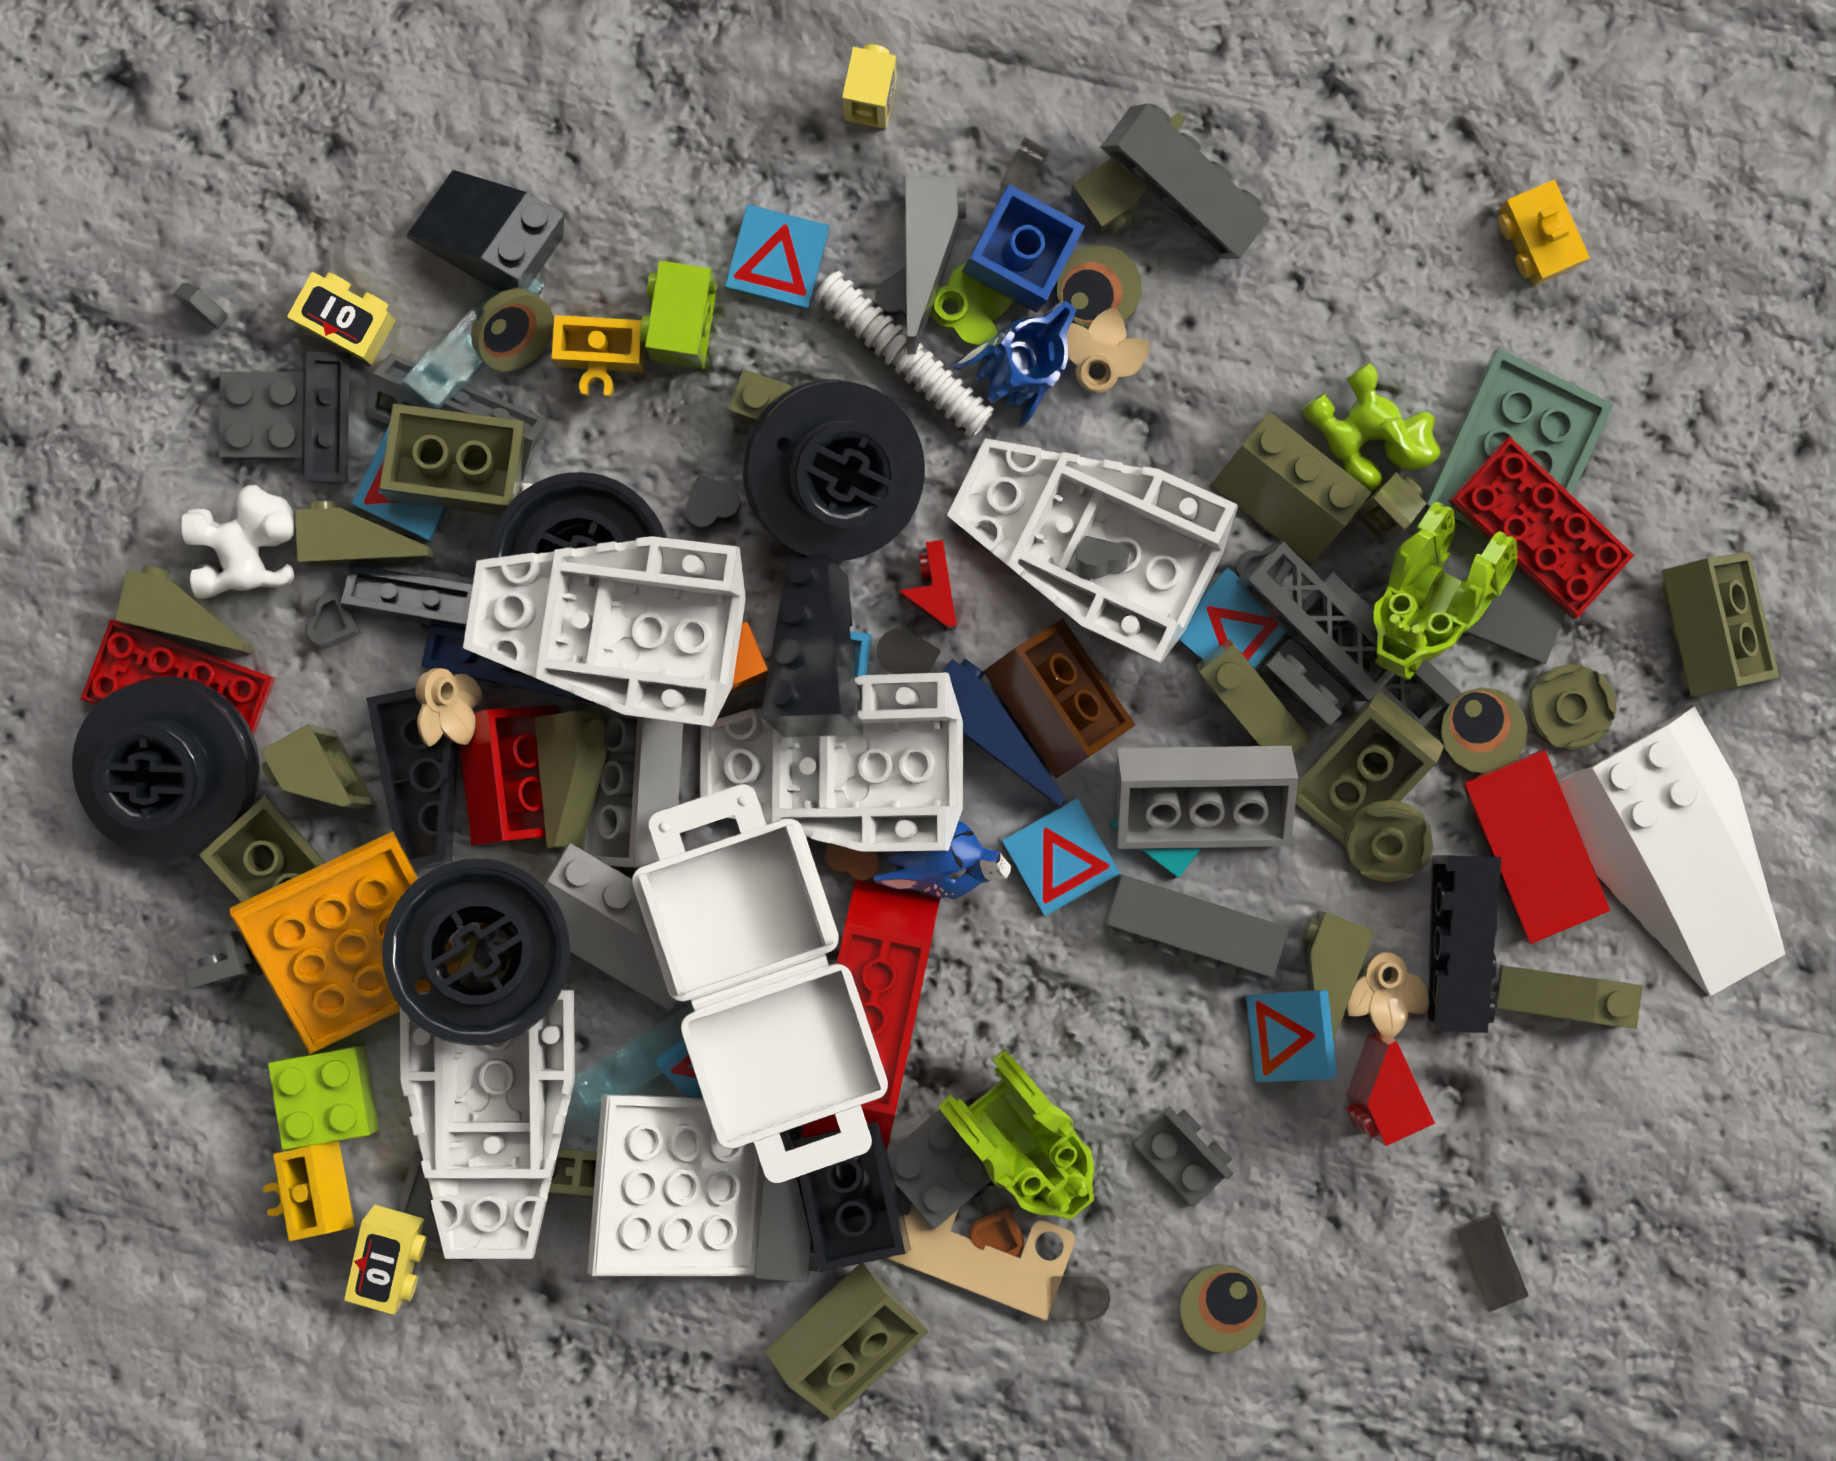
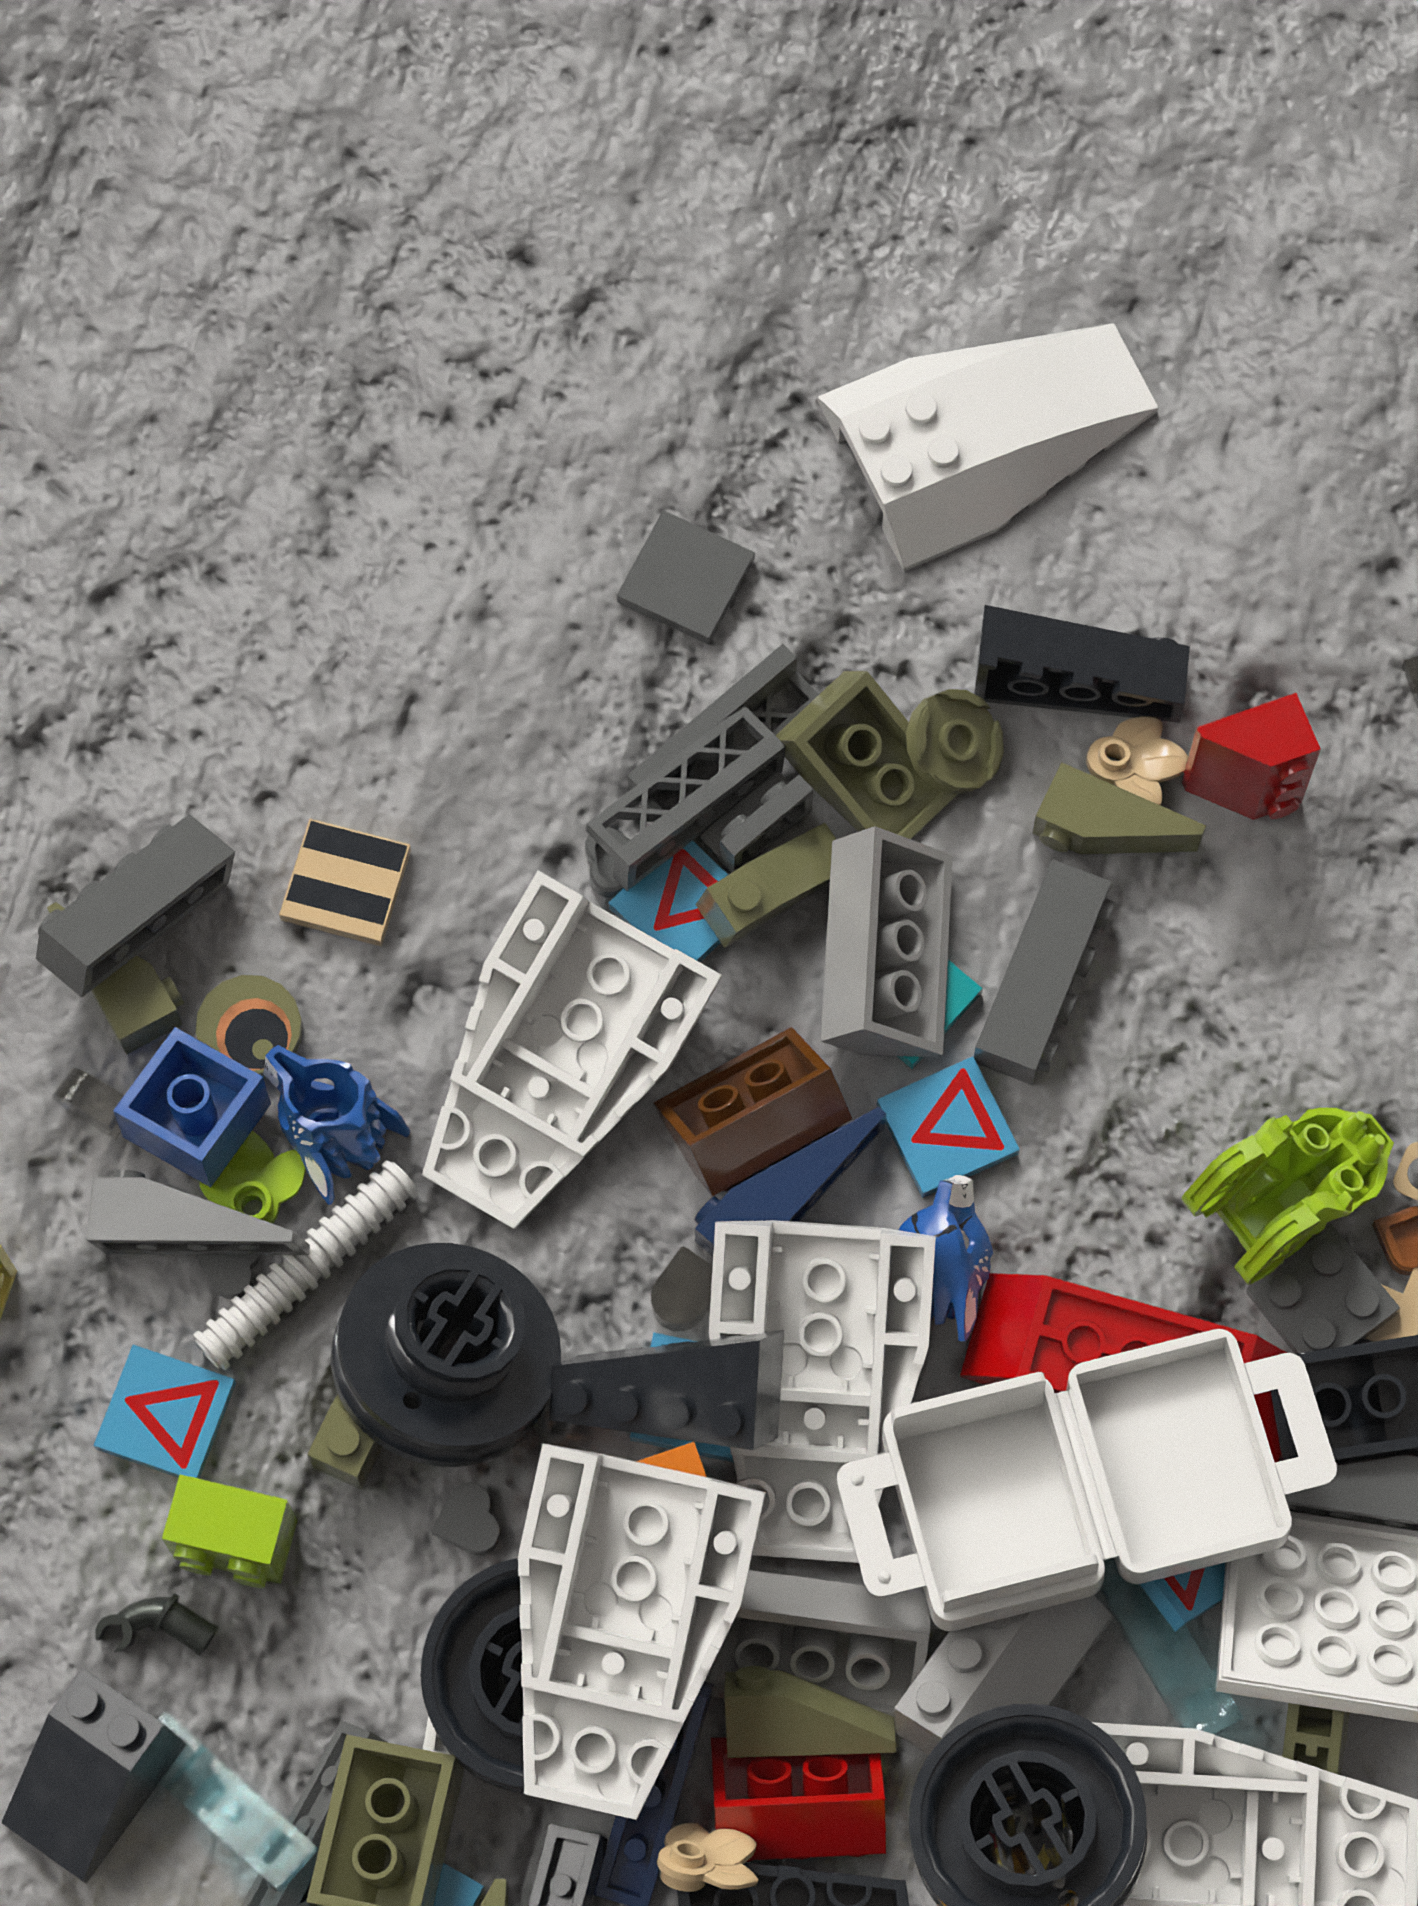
camera: 85 degrees left, 15 degrees down
(512, 329) = (224, 1747): olive tile -> none
(599, 347) = (258, 1639): yellow brick -> none
(618, 272) = (163, 1615): none -> pearl dark grey piece
(858, 864) = (938, 1373): dark orange tile -> none
(937, 598) = (617, 1244): red slope -> none
(1099, 556) = (585, 1043): dark grey tile -> none
(1105, 344) = (322, 1019): tan plate -> none
(1182, 1156) = (1319, 1008): dark grey bracket -> none
(1228, 352) = (345, 882): none -> tile
(1290, 488) = (517, 819): olive slope -> none
(1291, 1036) = (1182, 868): dark azure tile -> none
(1373, 417) = (444, 718): lime animal -> none
(1391, 507) = (557, 704): olive slope -> none
(1425, 606) = (686, 666): lime animal -> none
(1482, 730) = (829, 628): tile -> none
(1534, 408) = (503, 563): sand green plate -> none
(1538, 846) = (944, 581): red tile -> none
(1542, 233) = (243, 513): yellow brick -> none
(1555, 535) = (594, 542): red tile -> none
(1569, 996) = (1151, 555): olive slope -> none
(1571, 707) = (808, 530): olive tile -> none
(1719, 623) = (724, 360): olive slope -> none

